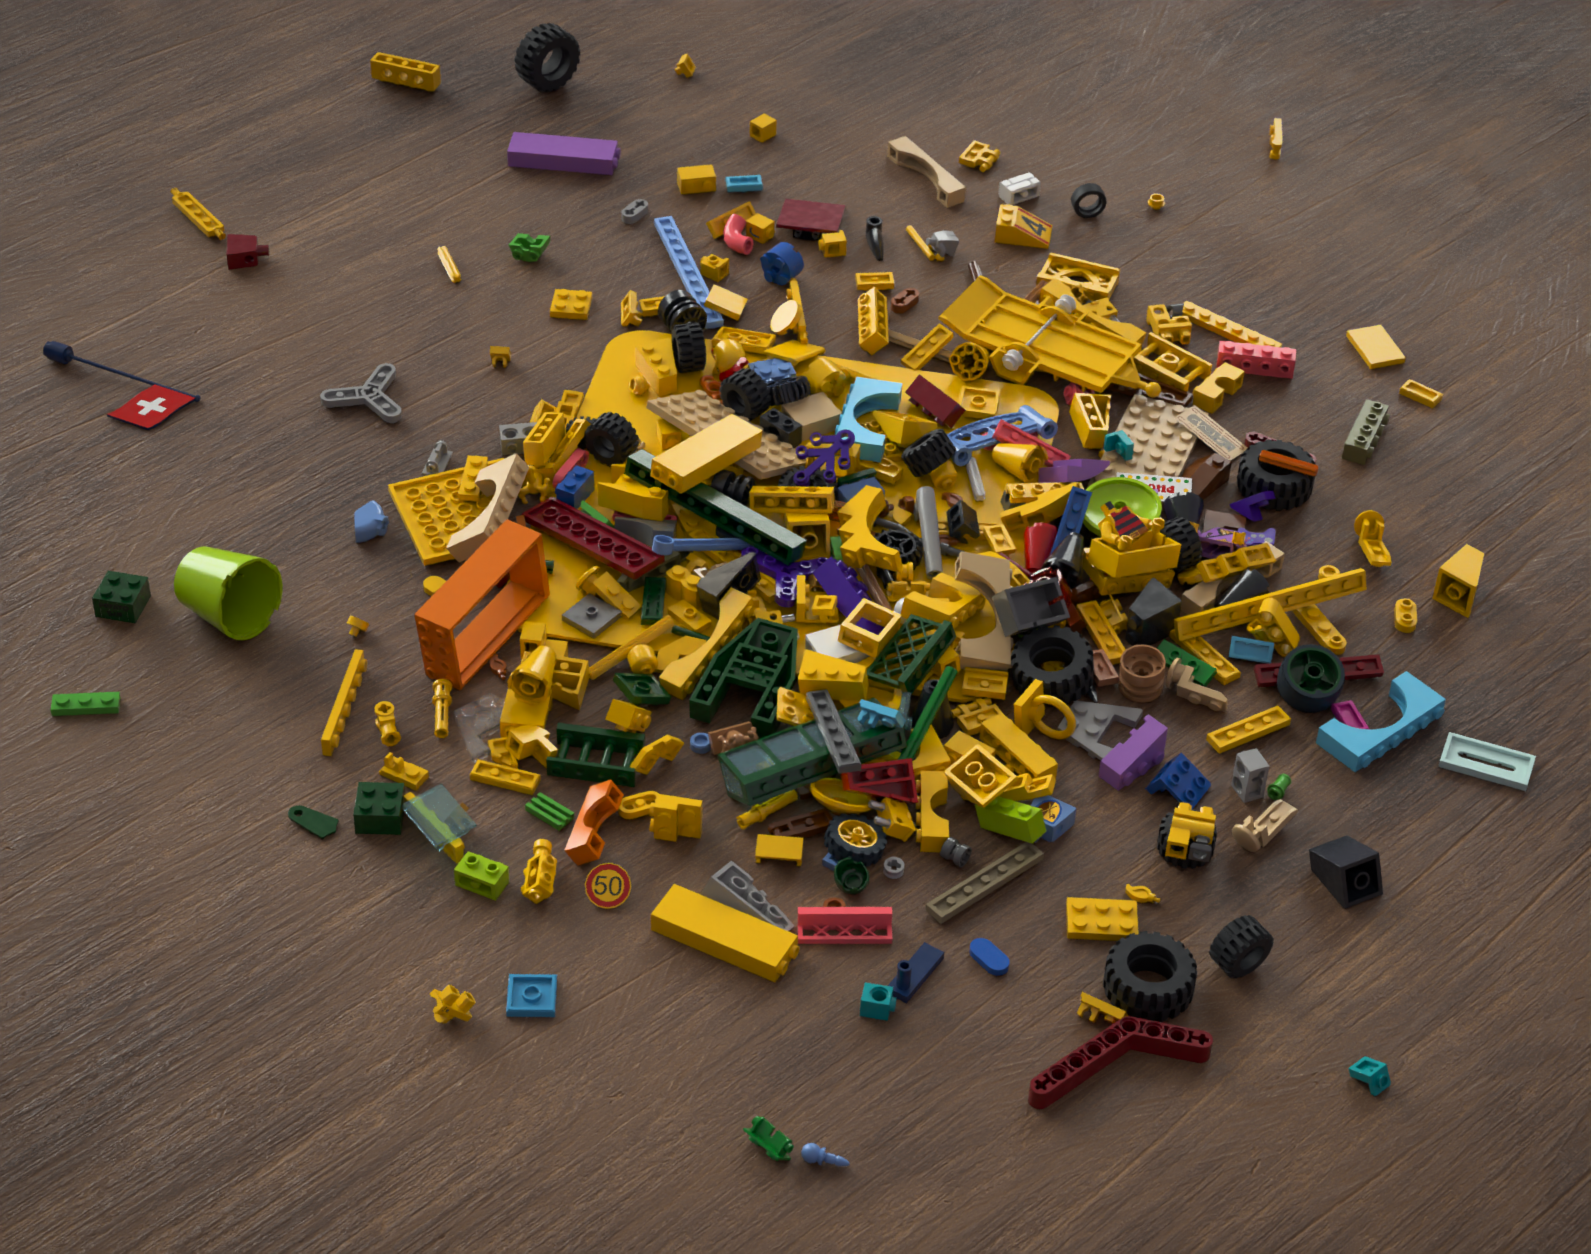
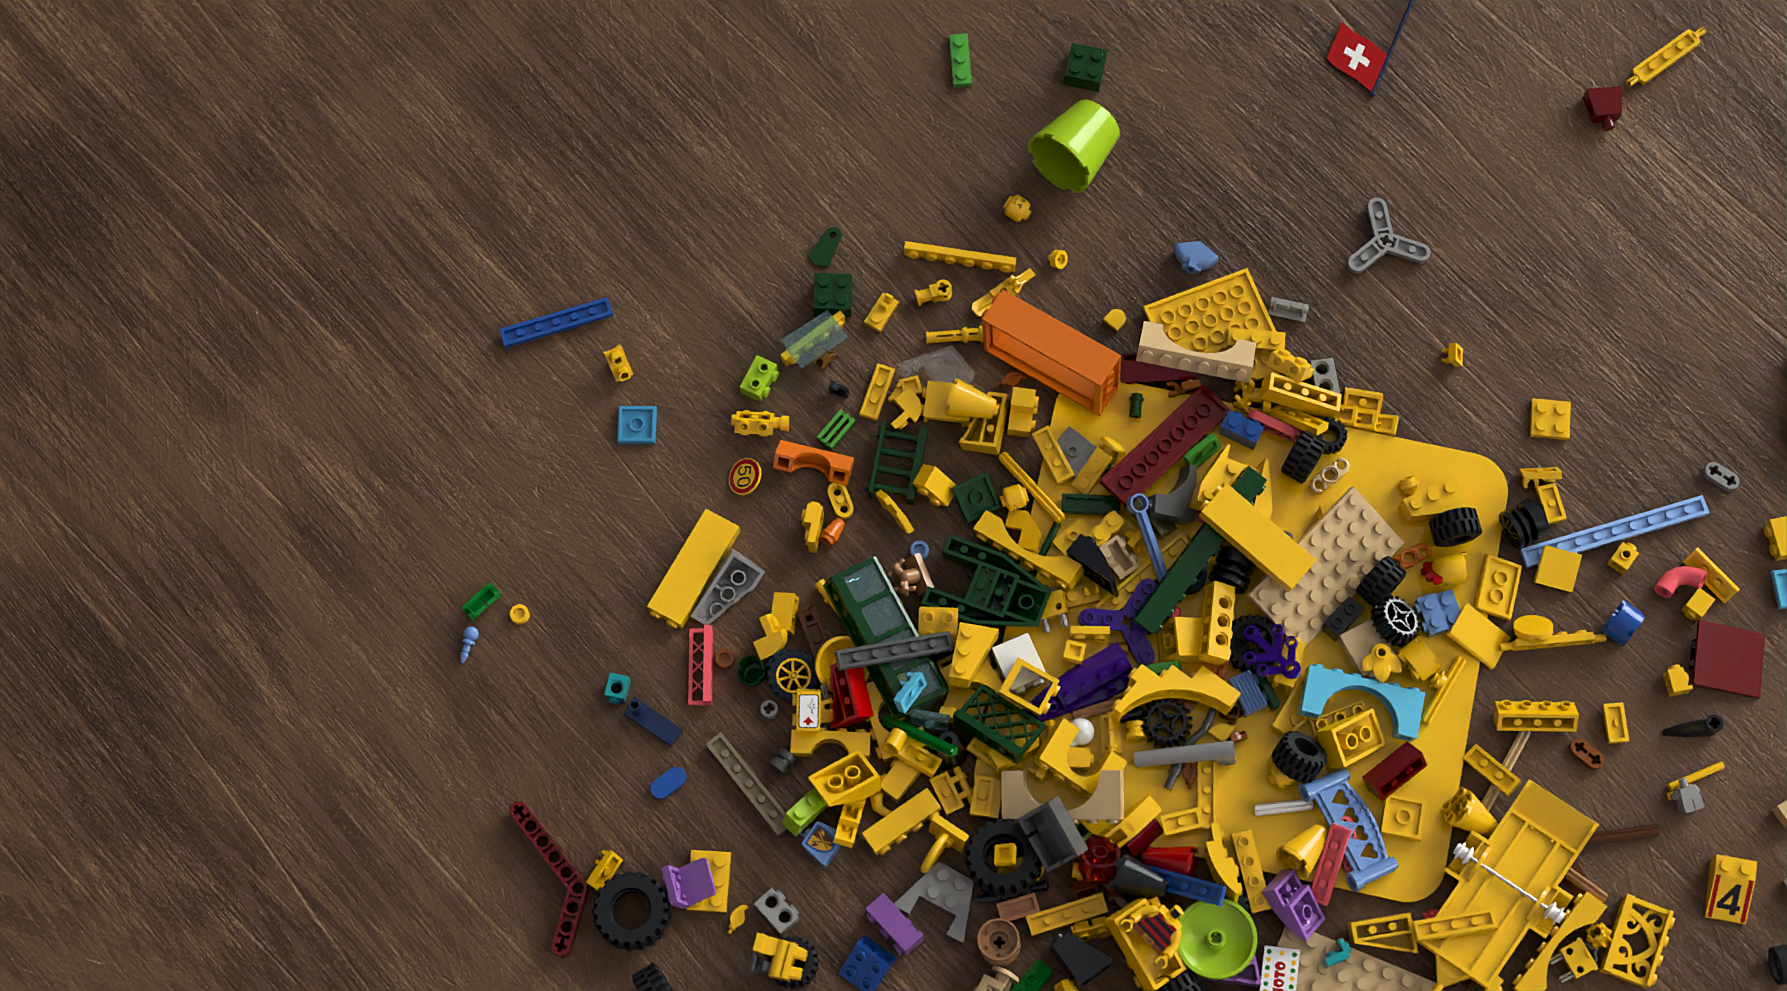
camera: 95 degrees right, 30 degrees up
(290, 653) = (1017, 208): none -> yellow head
(384, 1077) = (556, 322): none -> blue plate
(398, 679) = (1012, 285): none -> yellow piece
(449, 264) = (1606, 298): yellow axle -> none
(500, 808) = (838, 389): none -> black tile
(509, 441) = (1291, 366): none -> yellow plate
(527, 248) = (1638, 371): bright green cylinder -> none
(595, 624) = (1053, 454): none -> yellow tile
(782, 1107) = (519, 614): none -> yellow tile
(818, 850) = (774, 640): none -> yellow brick
(828, 397) = (1381, 665): none -> yellow plate
(901, 810) = (807, 709): none -> brick
(944, 731) = (910, 753): none -> yellow plate
(951, 498) = (1250, 786): dark orange piece -> none
(962, 521) = (1206, 788): black hinge -> none
(1054, 648) = (1005, 854): none -> yellow tile
(1084, 363) = (1454, 925): none -> yellow tile
(1110, 918) = (688, 883): none -> medium lavender bracket
(1131, 855) = (773, 914): none -> light grey brick

